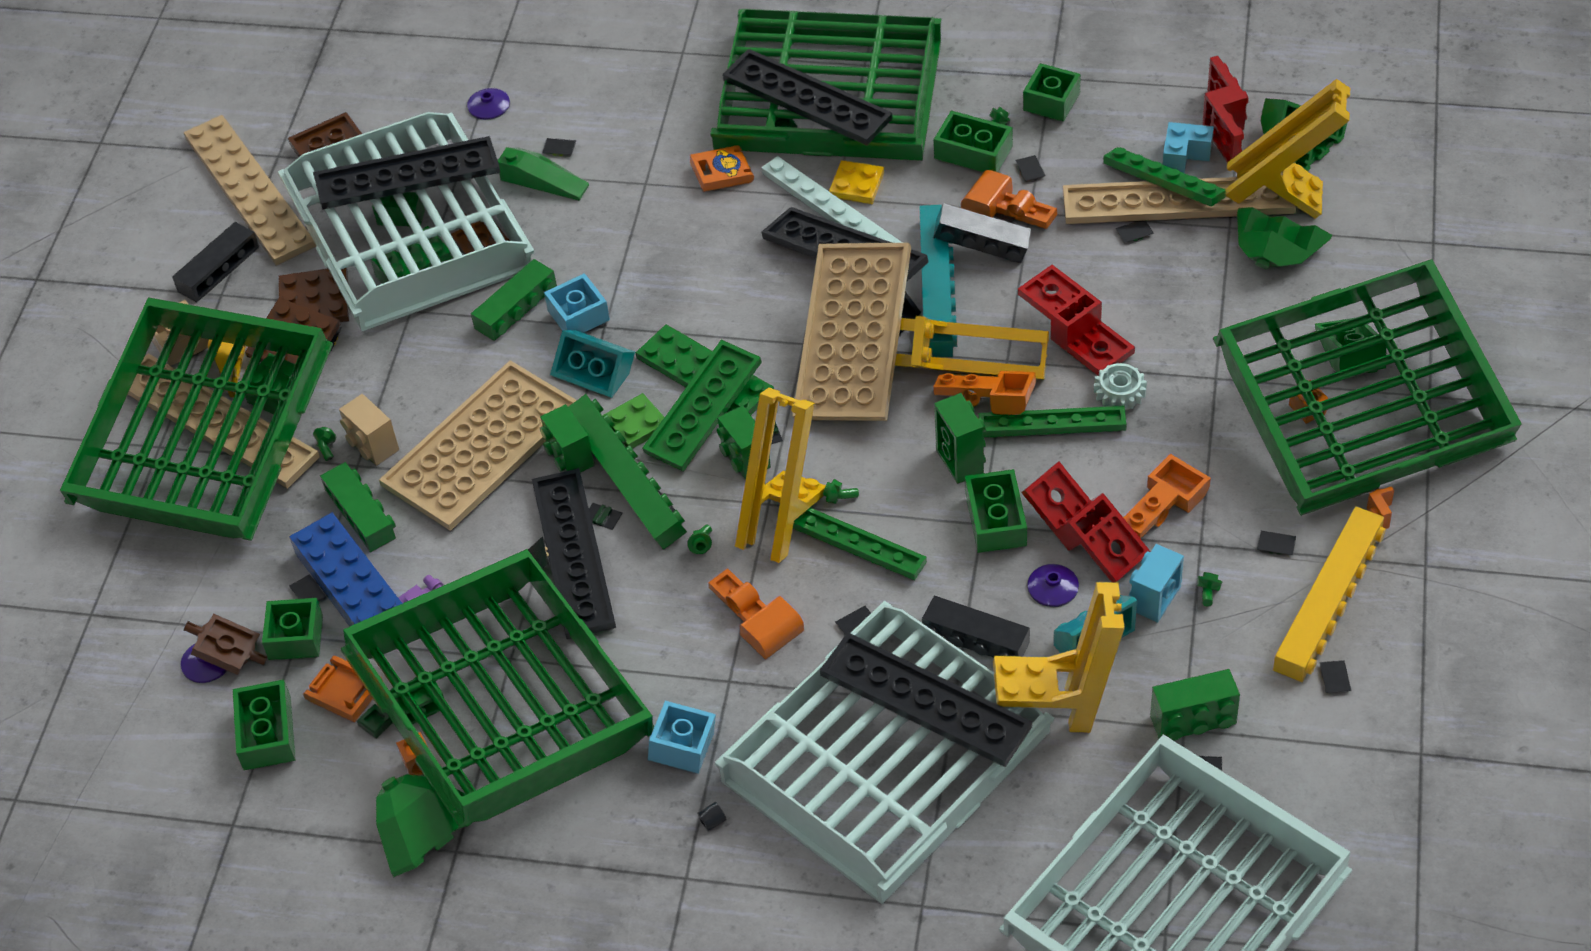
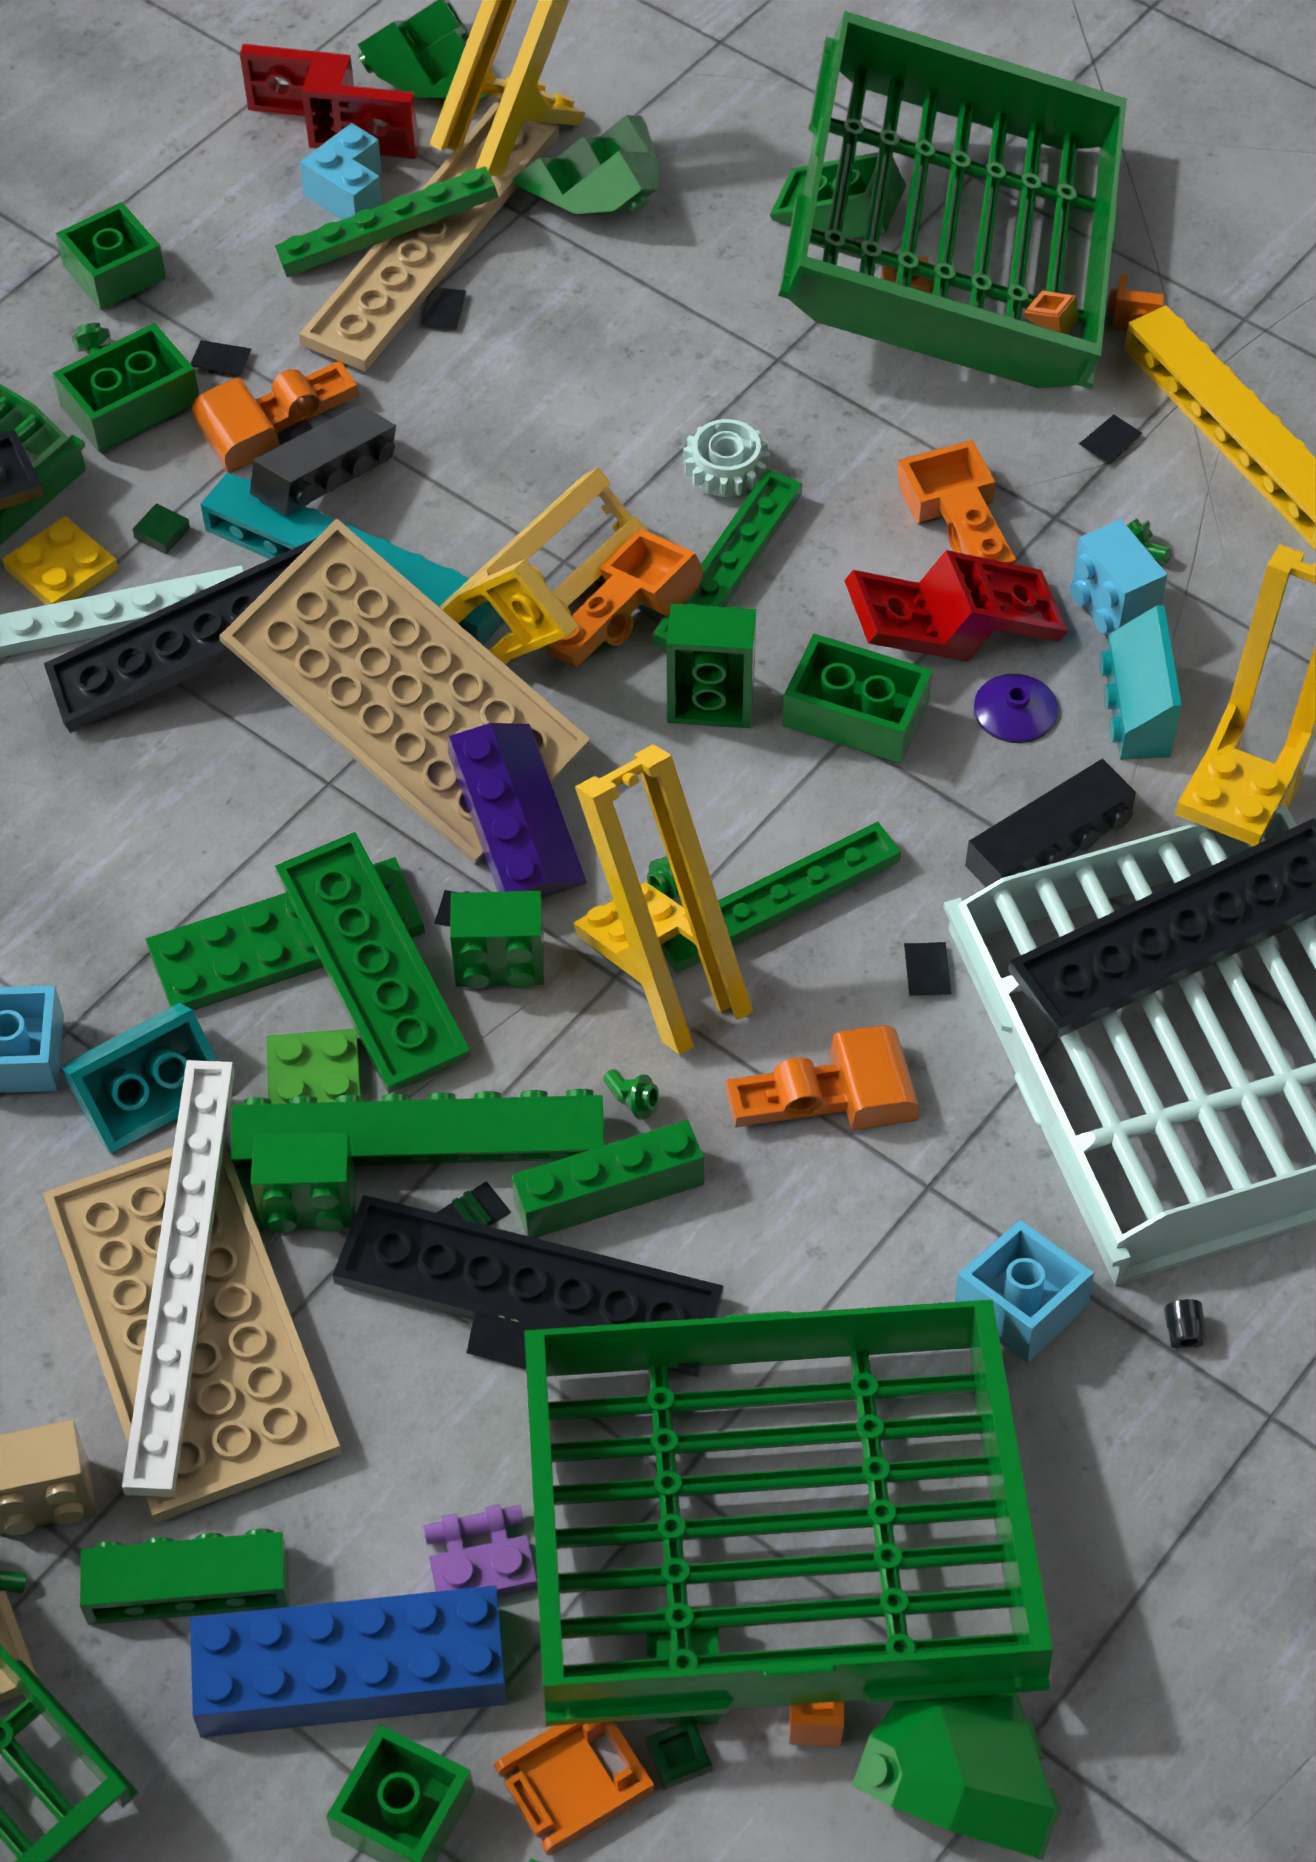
camera: 65 degrees left, 5 degrees up
(307, 588) = (307, 1750): black piece -> none
(492, 424) = (179, 1281): none -> white plate
(644, 551) = (608, 1179): none -> green brick
(835, 397) = (514, 809): none -> dark purple slope
(905, 204) = (161, 528): none -> dark green tile
(1075, 319) = (568, 429): red bracket -> none
(1335, 470) = (1053, 311): none -> orange slope

